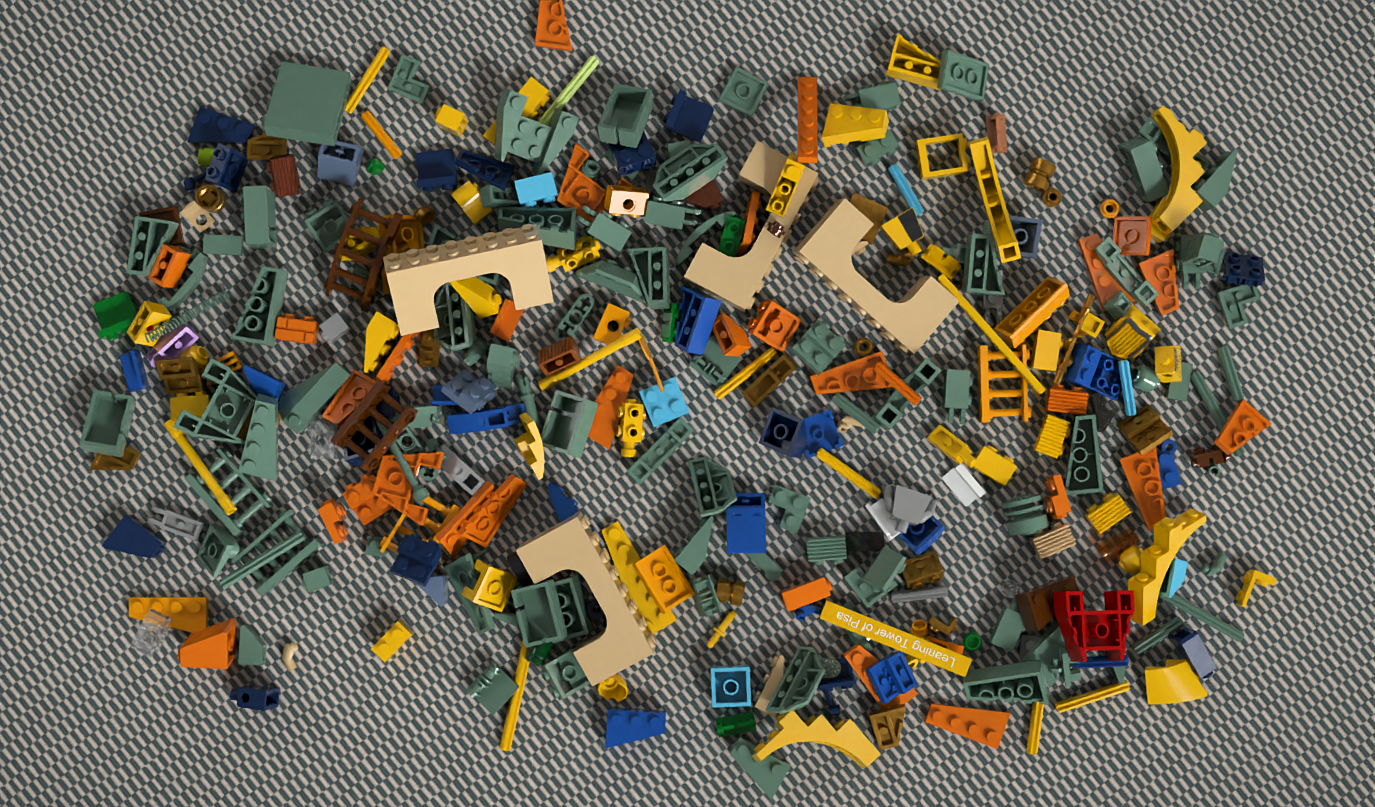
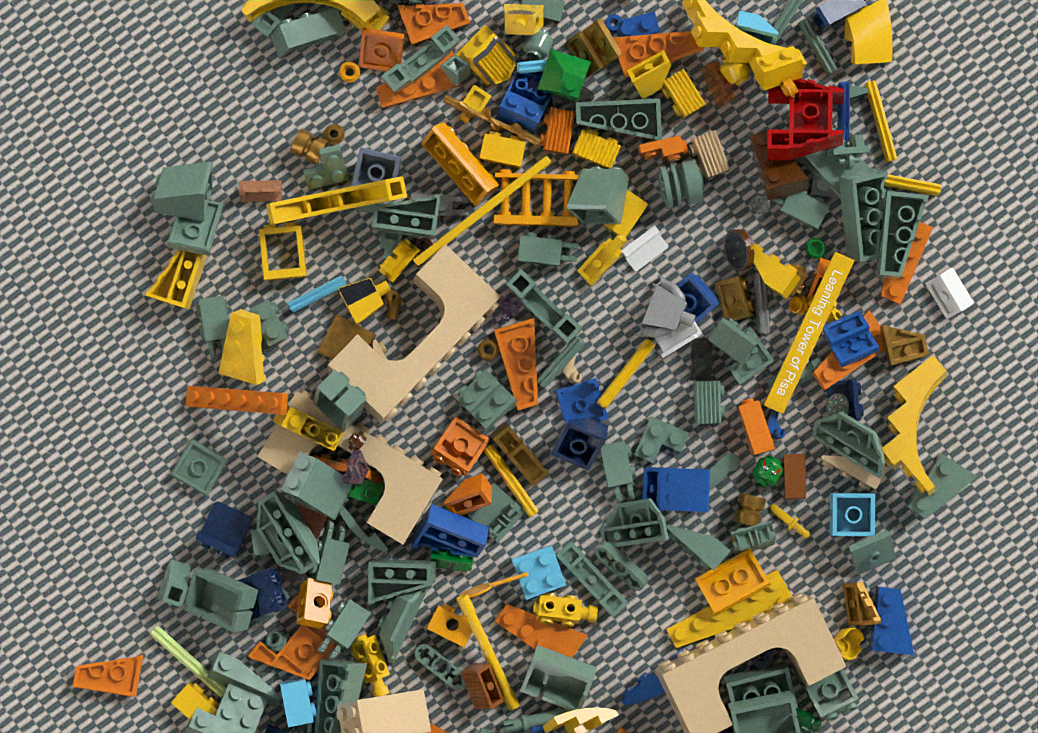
camera: 90 degrees left, 0 degrees up
(638, 74) = (175, 583): none -> sand green slope
(647, 696) = (859, 605): none -> pearl gold wing
(663, 491) = (631, 575): none -> sand green beam
(697, 706) = (872, 552): none -> sand green plate
(733, 195) = (316, 486): none -> sand green slope
(735, 724) = (893, 510): green hinge -> none
(751, 230) = (356, 468): none -> bracket
(762, 469) = (617, 467): none -> sand green hinge
(762, 631) = (794, 476): none -> dark orange slope
(765, 606) = (767, 471): none -> green head
(813, 210) = (339, 400): none -> sand green piece
(833, 709) = (883, 402): dark blue hand -> none
(897, 383) = (530, 315): orange axle -> none
(903, 363) = (508, 306): none -> clear purple tile
(937, 766) = (949, 293): none -> white panel
(945, 606) = (774, 274): none -> yellow slope
(967, 570) = (738, 249): none -> tile
(994, 63) = (184, 190): none -> sand green slope
(994, 716) = (898, 231): none -> sand green wedge
(1010, 440) = (599, 196): none -> sand green slope
(1018, 196) = (331, 171): none -> sand green plate
(1118, 403) = (564, 75): none -> green slope
(1122, 609) = (789, 87): none -> light orange plate
(1124, 482) = (650, 74): none -> yellow slope
(1139, 598) = (778, 66): none -> yellow brick

